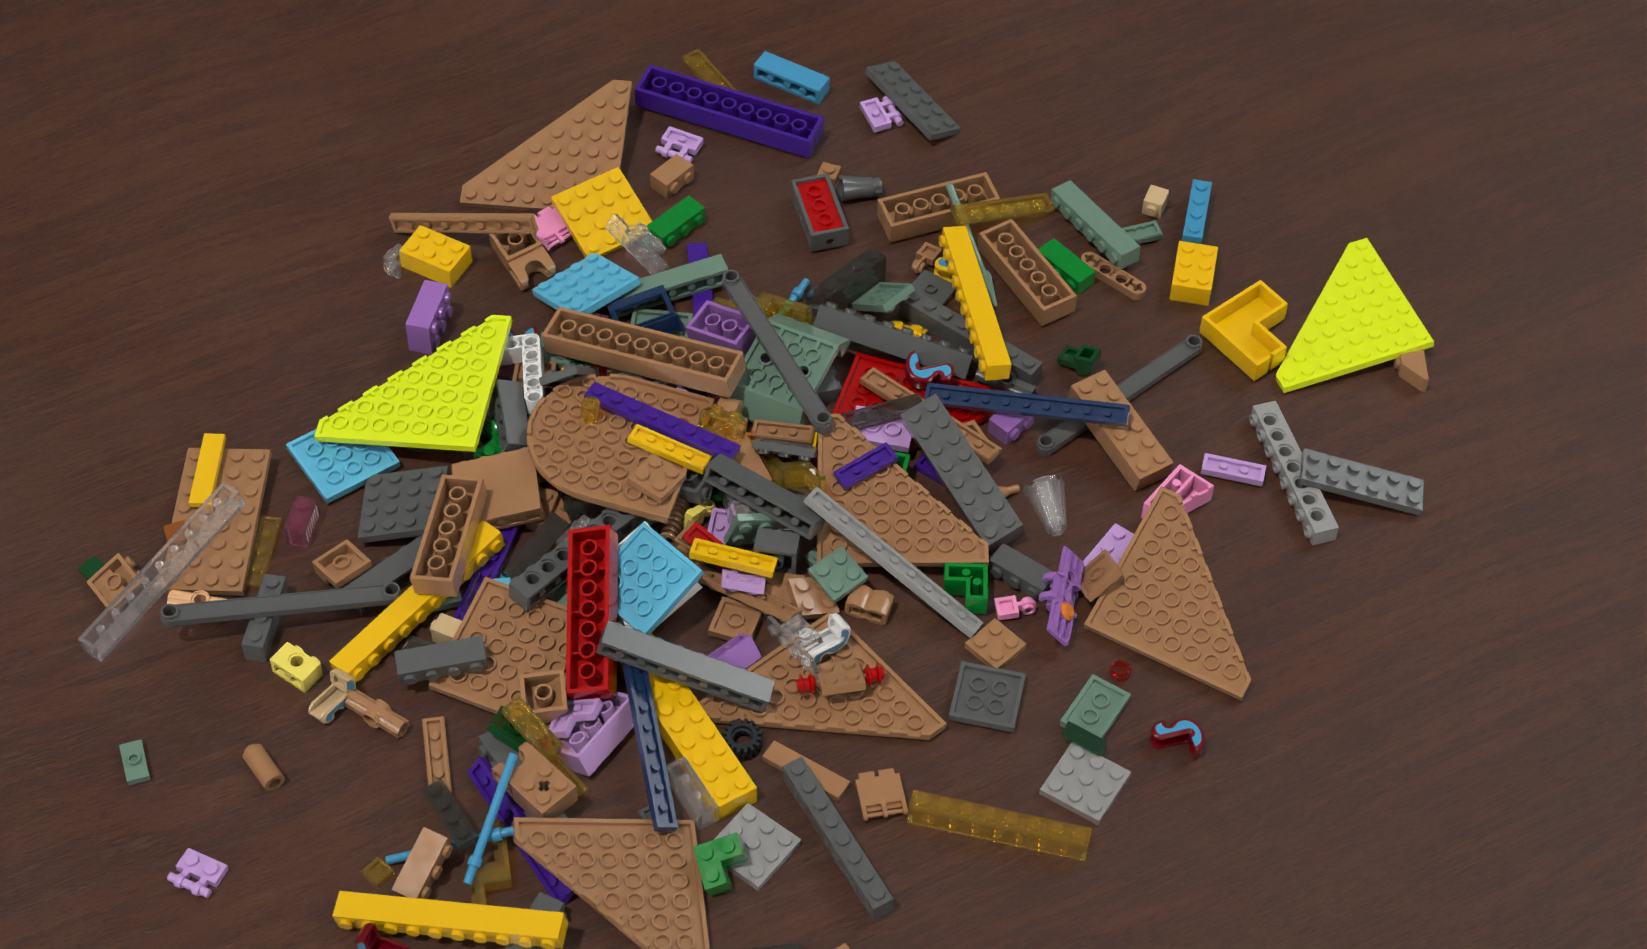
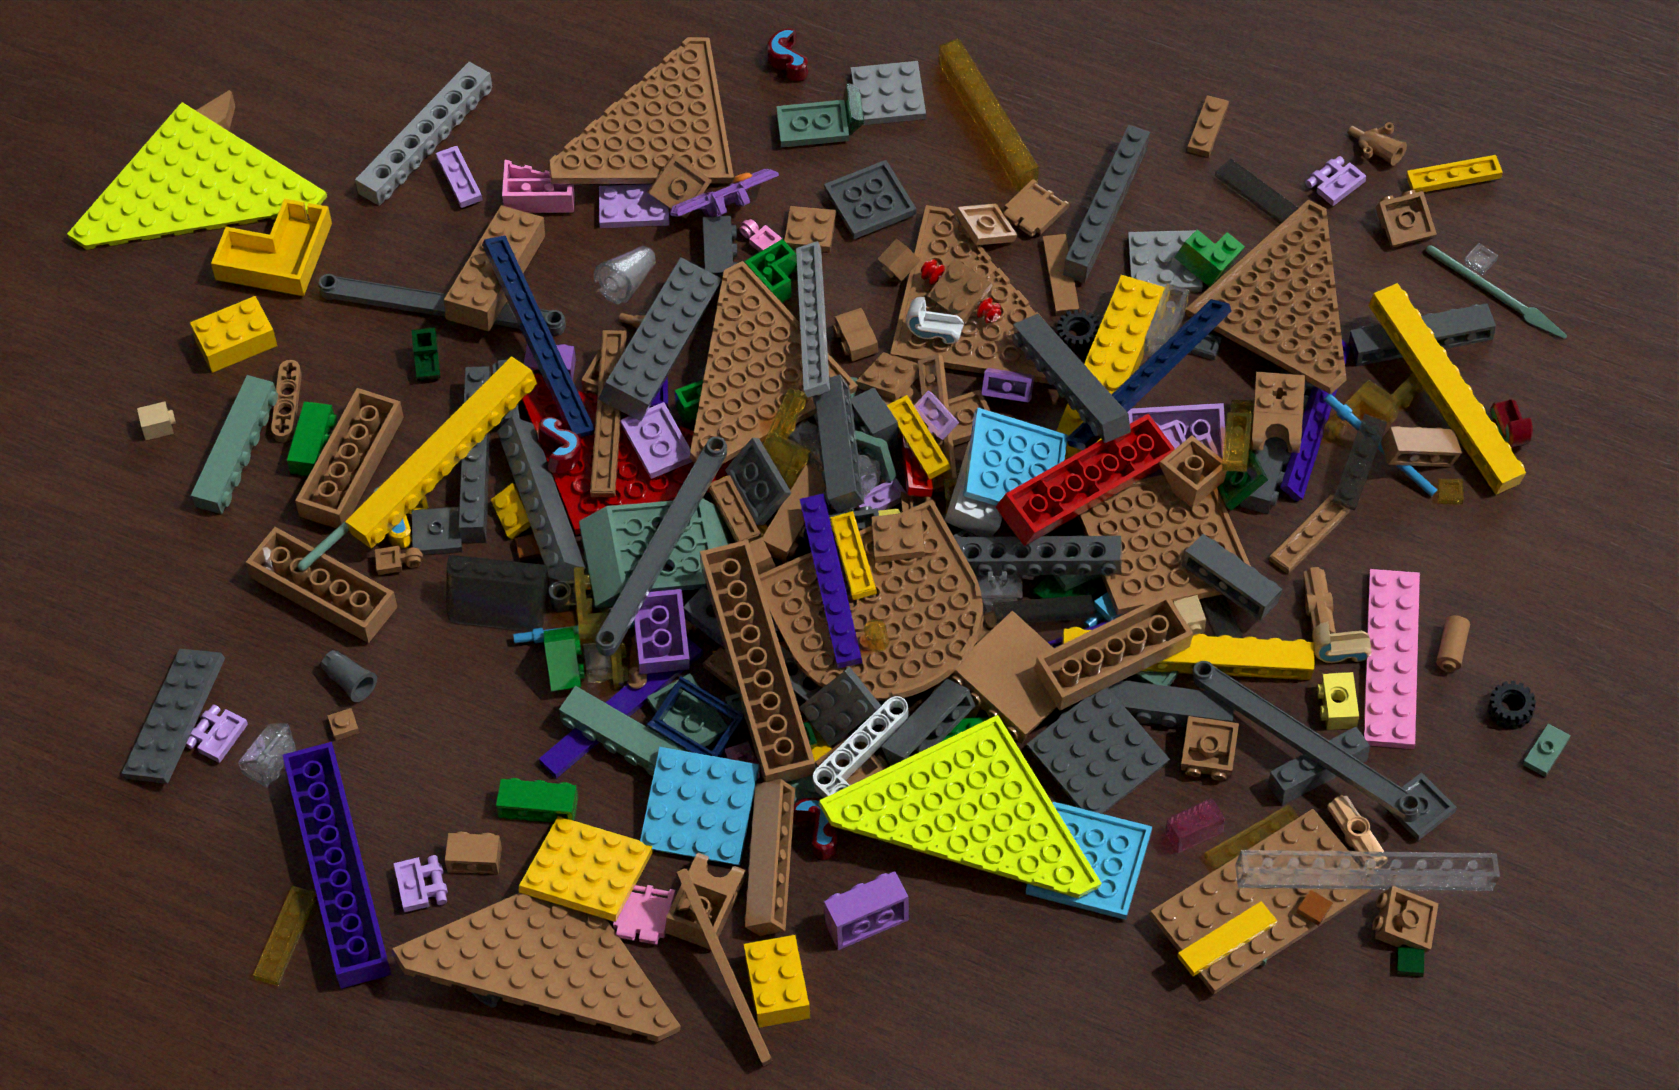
camera: 125 degrees left, 5 degrees up
(179, 654) = (1434, 806): none -> dark grey plate
(187, 776) = (1513, 692): none -> black tyre
(200, 867) = (1579, 616): lavender plate -> none
(296, 730) = (1393, 660): none -> bright pink plate
(392, 262) = (815, 1020): clear bracket -> none
(475, 860) = (1381, 407): dark azure bar -> none
(509, 293) = (770, 857): none -> medium nougat brick
(639, 243) = (598, 801): clear bracket -> none
(722, 423) = (786, 532): clear yellow brick -> none
(766, 279) = (561, 655): none -> green brick
(791, 77) = (229, 849): dark azure brick -> none
(798, 638) = (952, 335): clear bracket -> none
(819, 212) = (416, 680): brick -> none
(837, 121) = (264, 757): none -> clear slope
(837, 574) = (857, 359): sand green plate -> none
(865, 466) = (730, 397): dark purple tile -> none
(881, 412) = (644, 441): clear smoke tile -> none
(883, 297) = (493, 532): sand green plate -> none
(891, 746) = (985, 224): none -> medium nougat plate
(908, 666) = (898, 260): none -> medium nougat brick
(1002, 209) = (286, 519): clear yellow plate -> none
(1120, 670) = (755, 131): clear red plate -> none
(1144, 232) = (207, 408): sand green plate -> none
(1196, 211) = (150, 375): dark azure brick -> none
(1361, 481) = (397, 77): plate -> none

